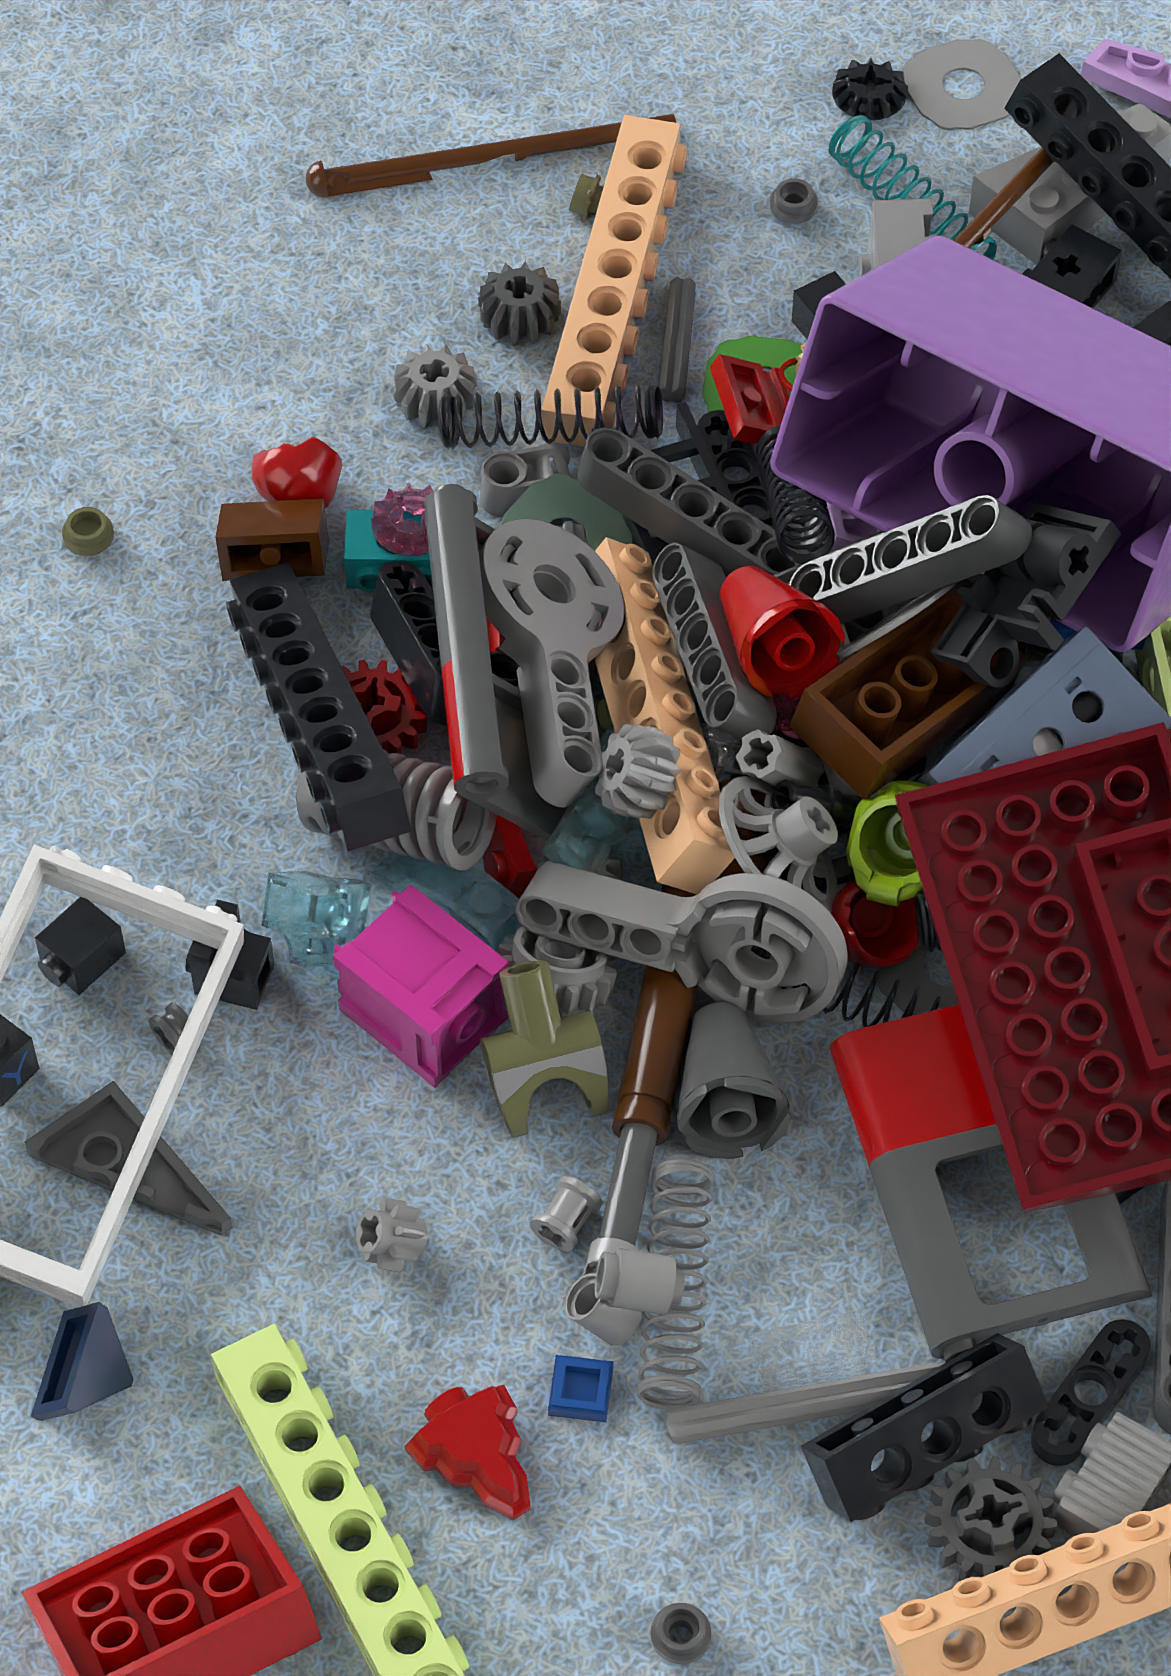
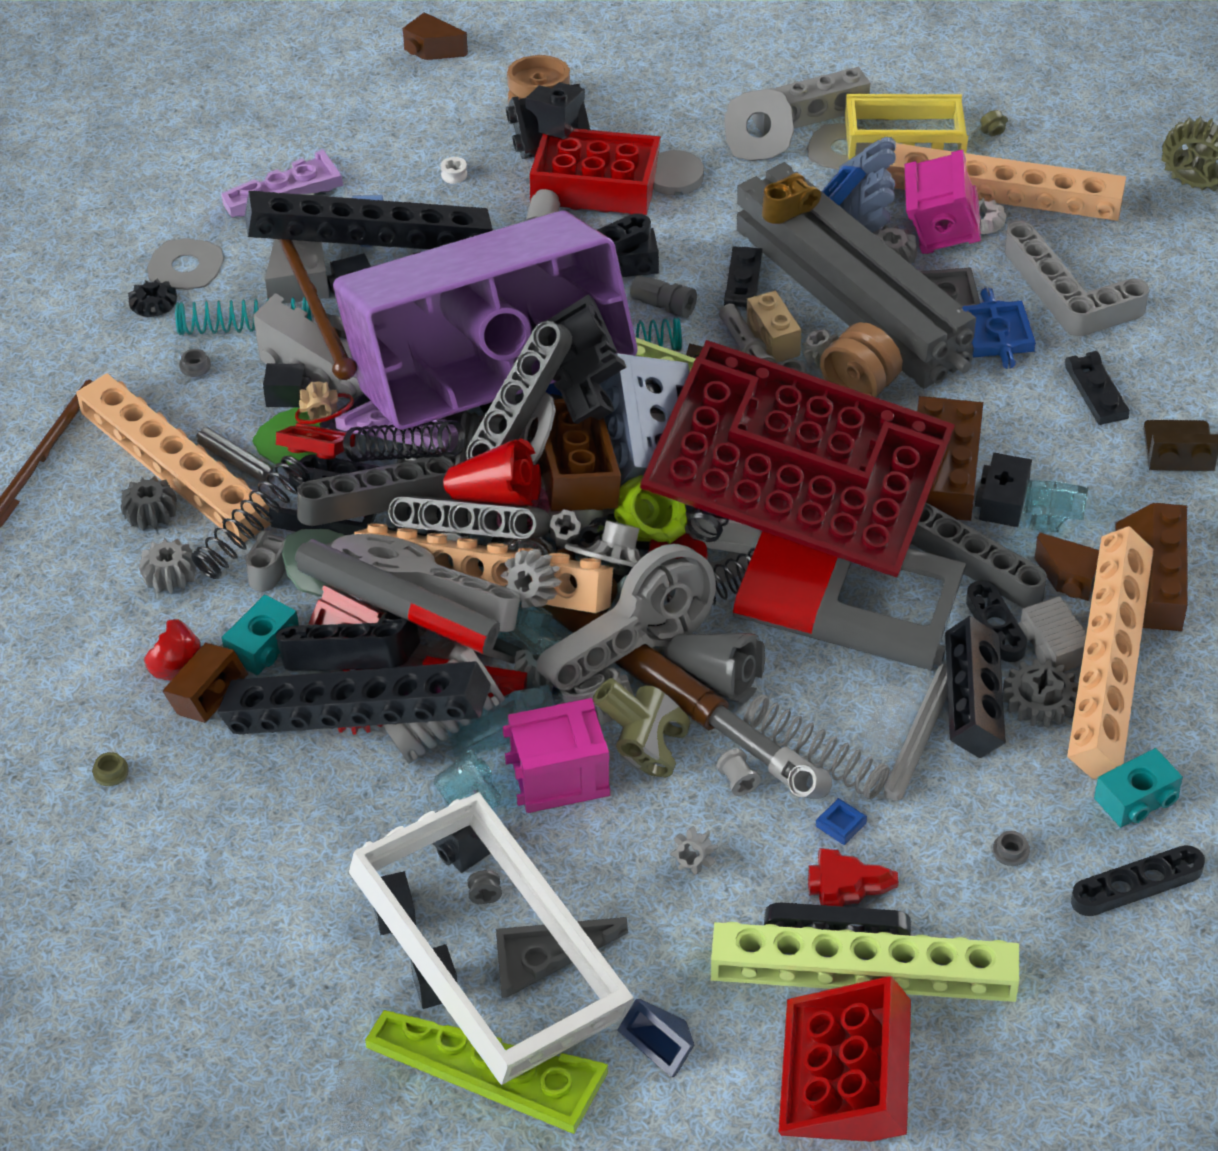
camera: 55 degrees left, 10 degrees down
(389, 525) = (272, 613): clear pink gear -> none
(394, 1478) = (838, 918): none -> black beam
(586, 196) = (104, 441): olive plate -> none
(639, 1281) = (819, 744): light grey brick -> none

